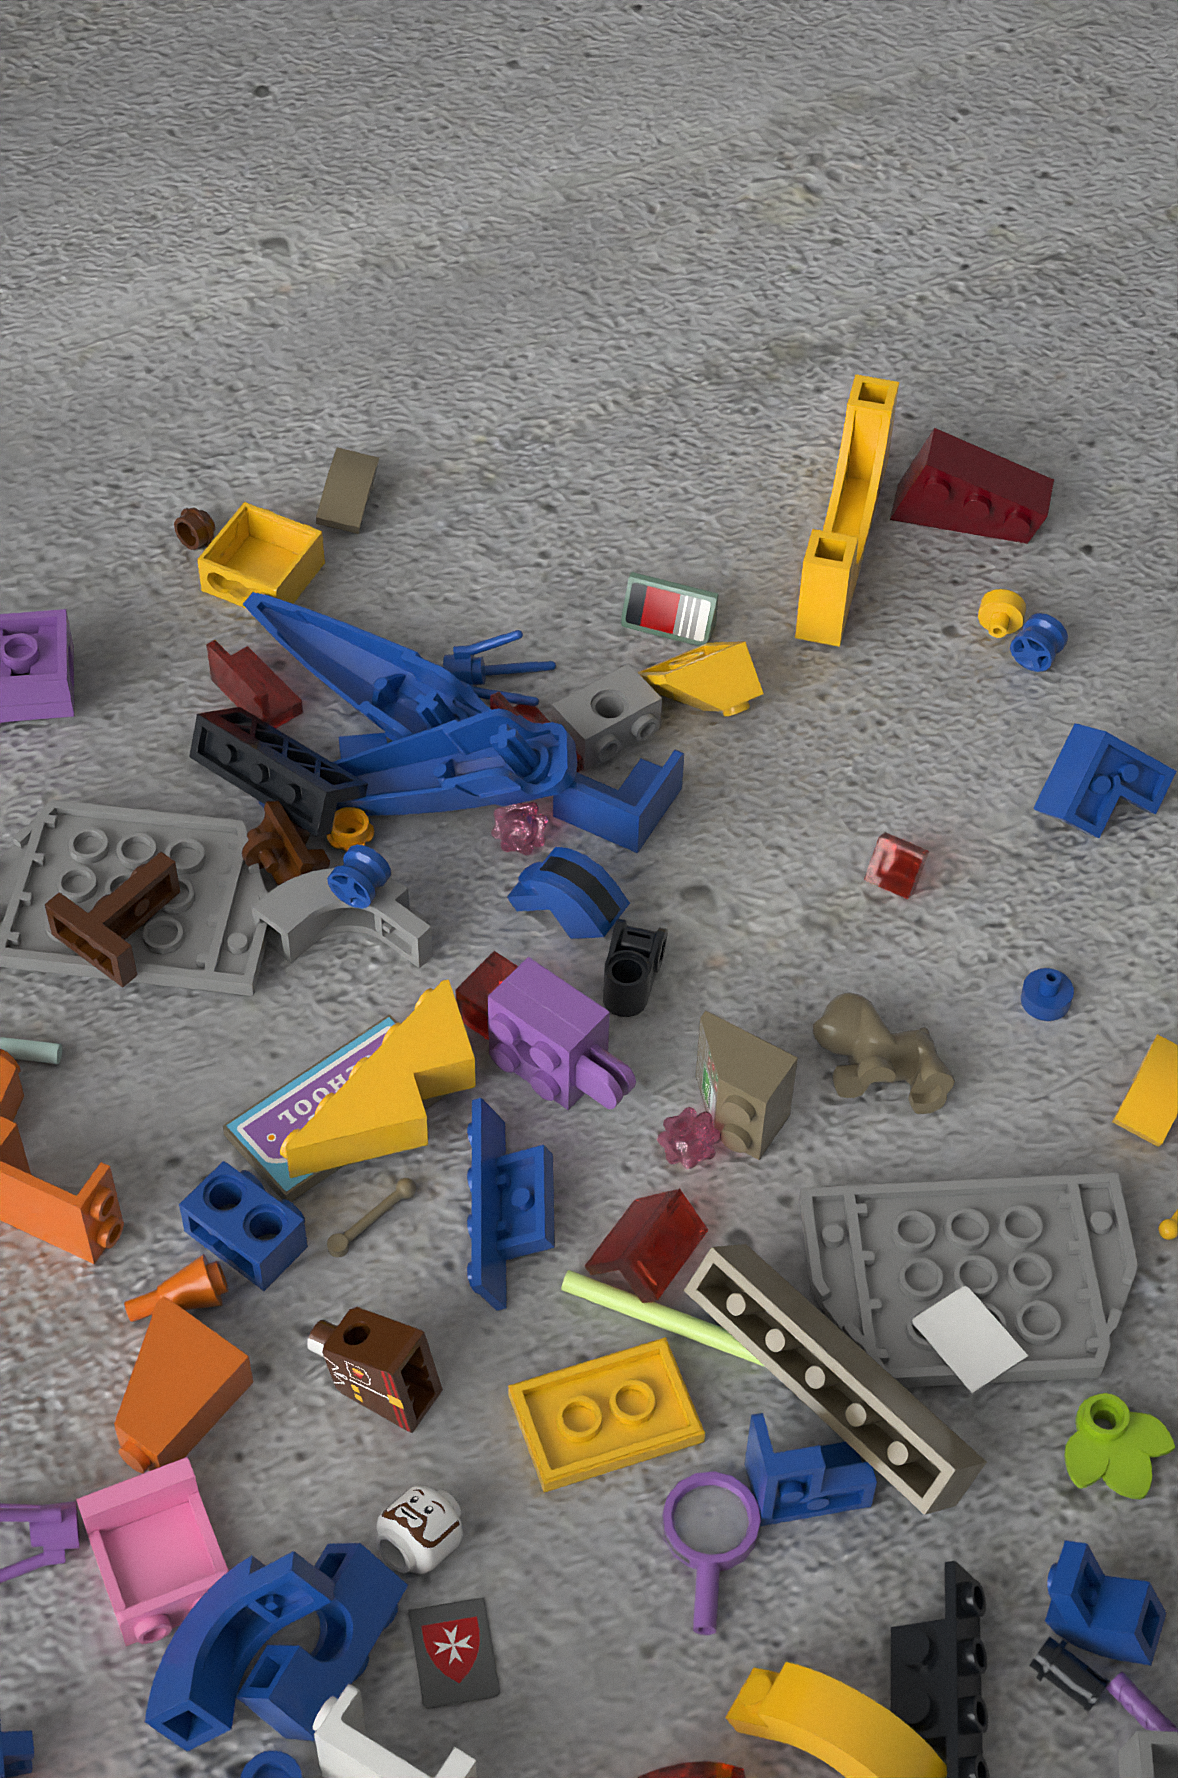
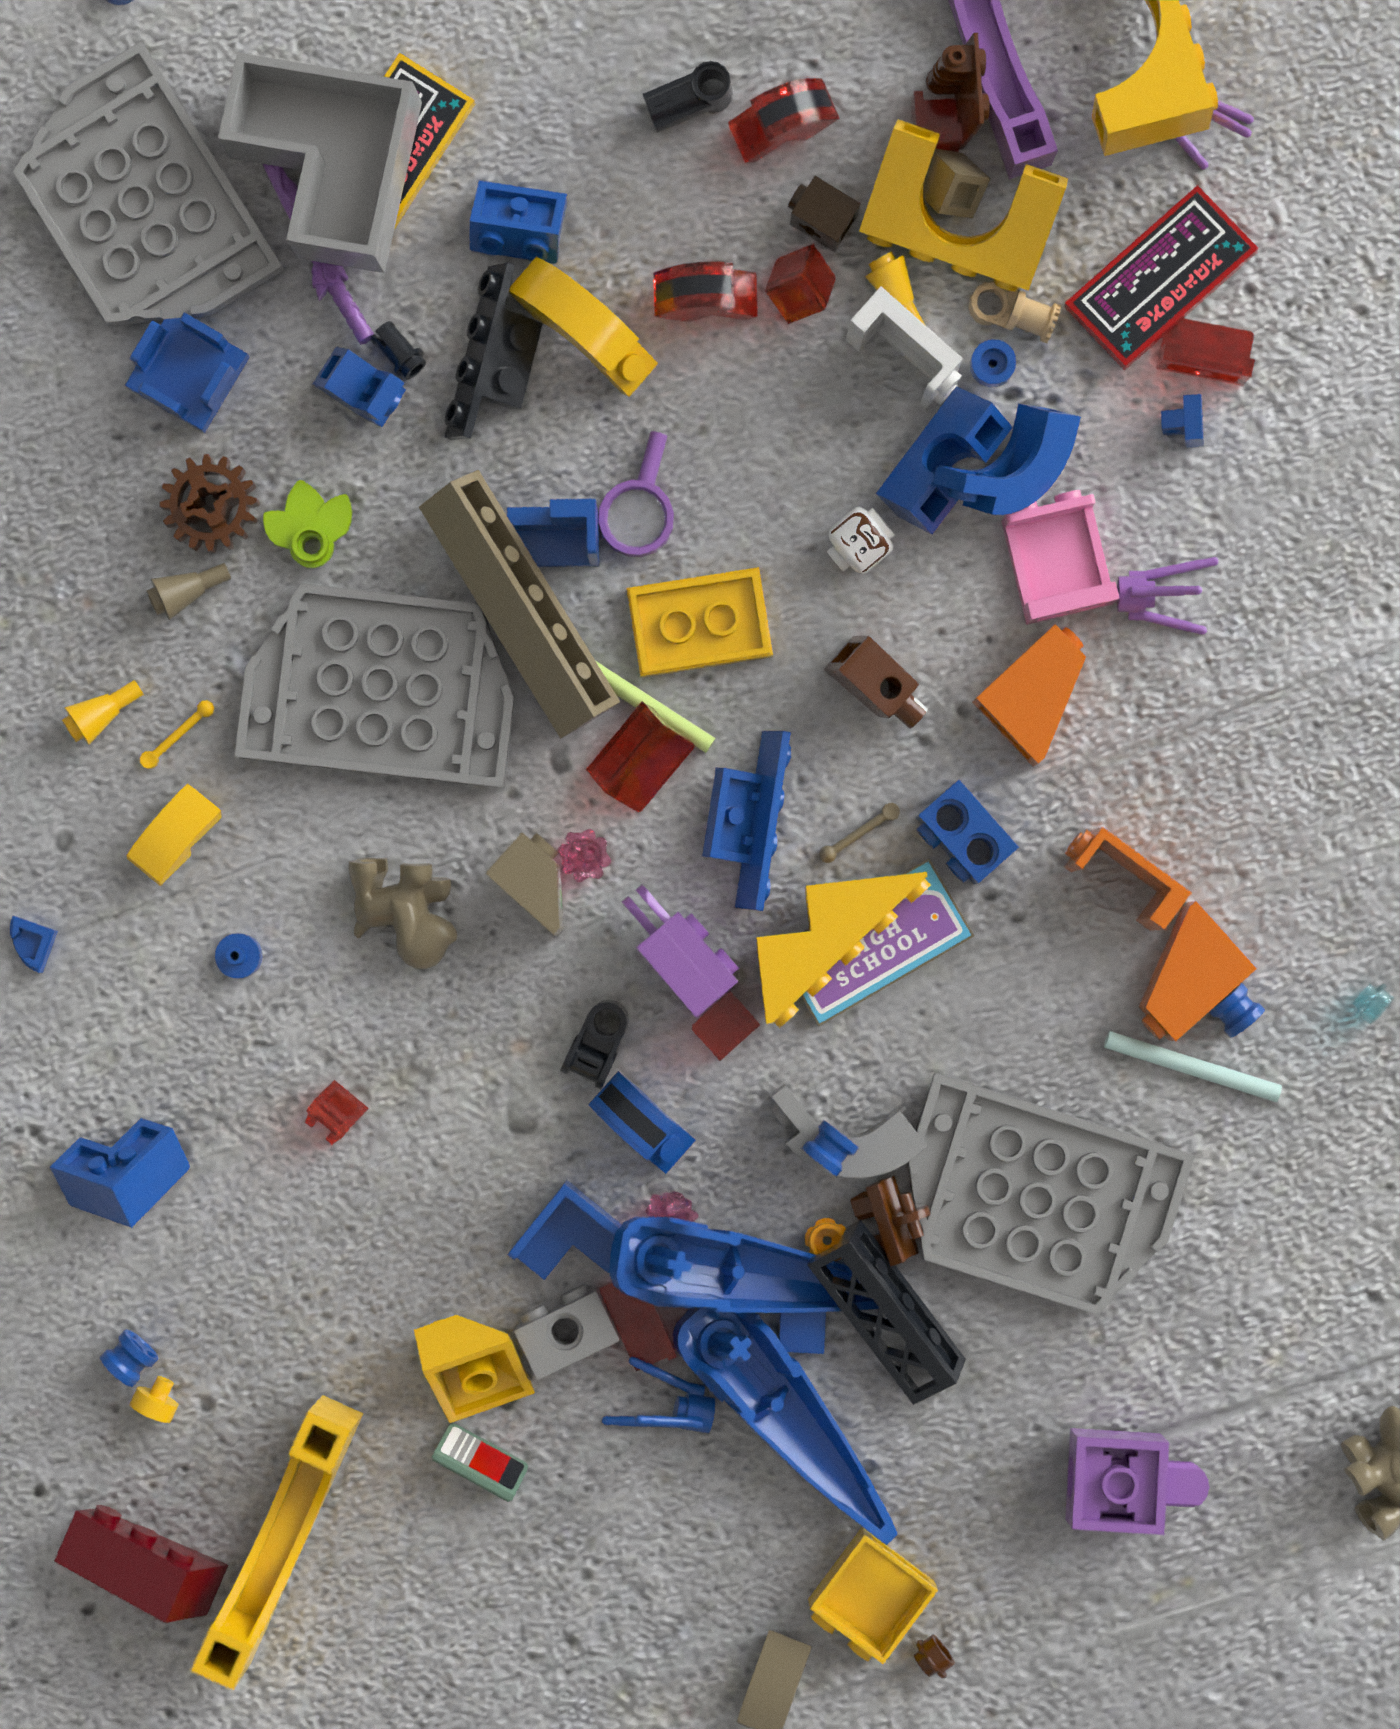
camera: 170 degrees left, 35 degrees up
(103, 931) = (1052, 1151): reddish brown bracket -> none
(190, 1288) = (1011, 784): orange cone -> none
(252, 685) = (895, 1433): clear red panel -> none
(454, 1653) = (846, 453): dark grey sticker -> none
(969, 1338) = (400, 625): white sticker -> none

